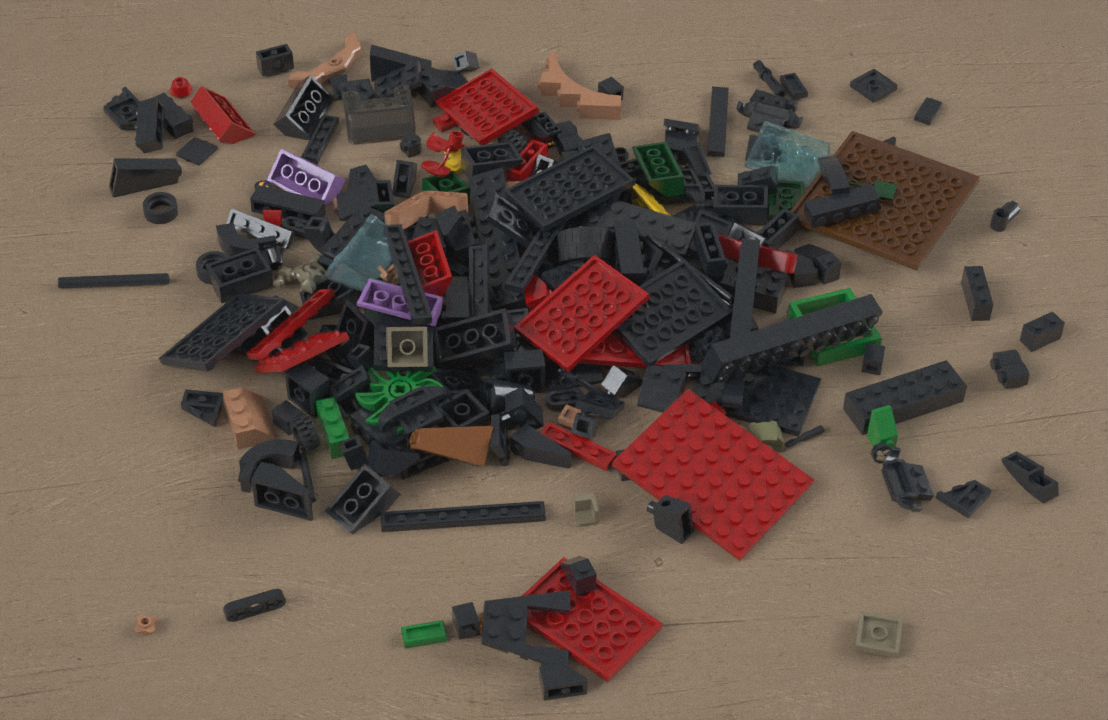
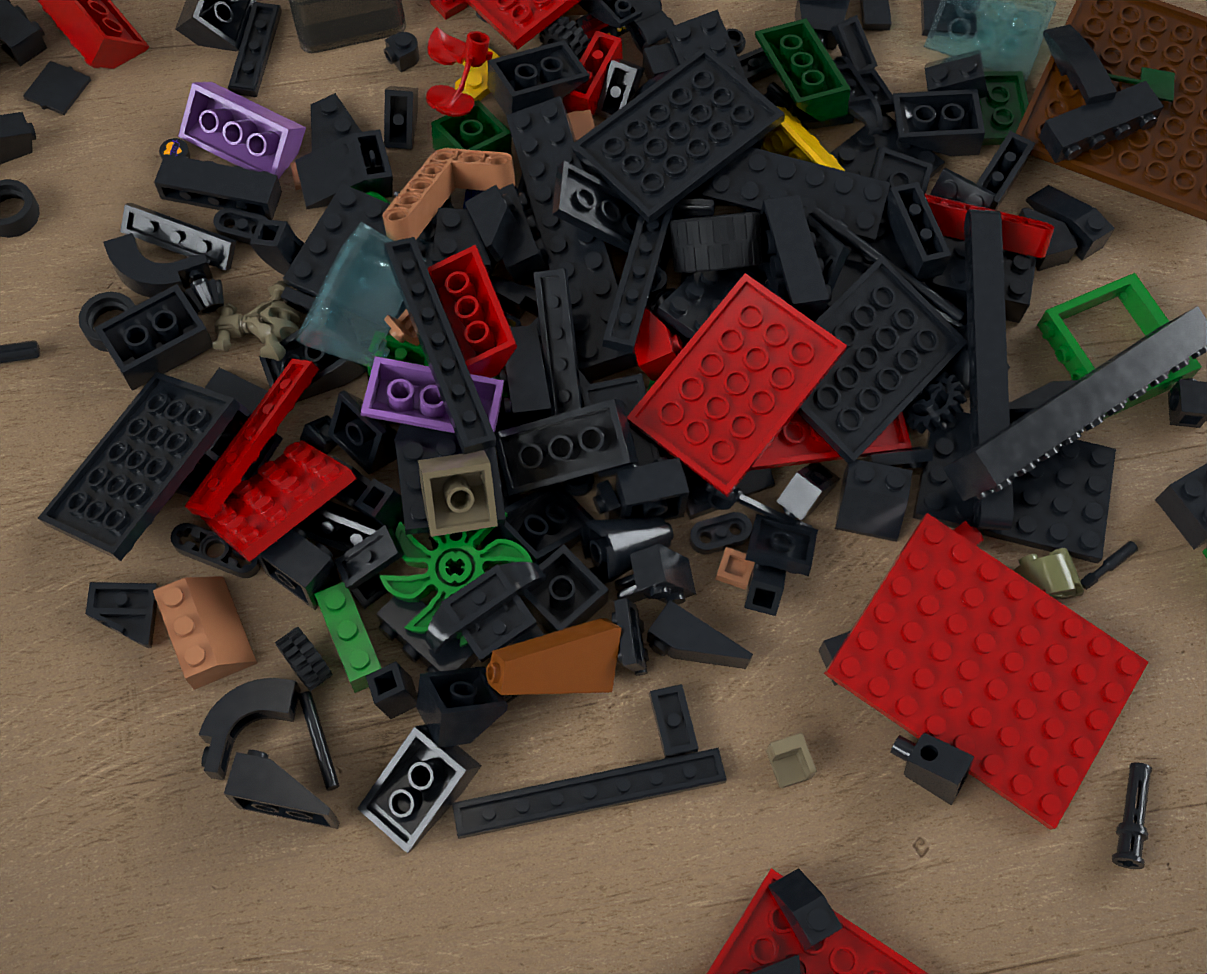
camera: 10 degrees left, 20 degrees up
(265, 389) = (207, 539): none -> black beam
(273, 217) = (197, 214): red slope -> none
(283, 414) = (268, 620): black brick -> none
(518, 485) = (673, 721): none -> black plate
(580, 447) = (757, 628): red plate -> none
(788, 561) = (1134, 832): none -> black pin

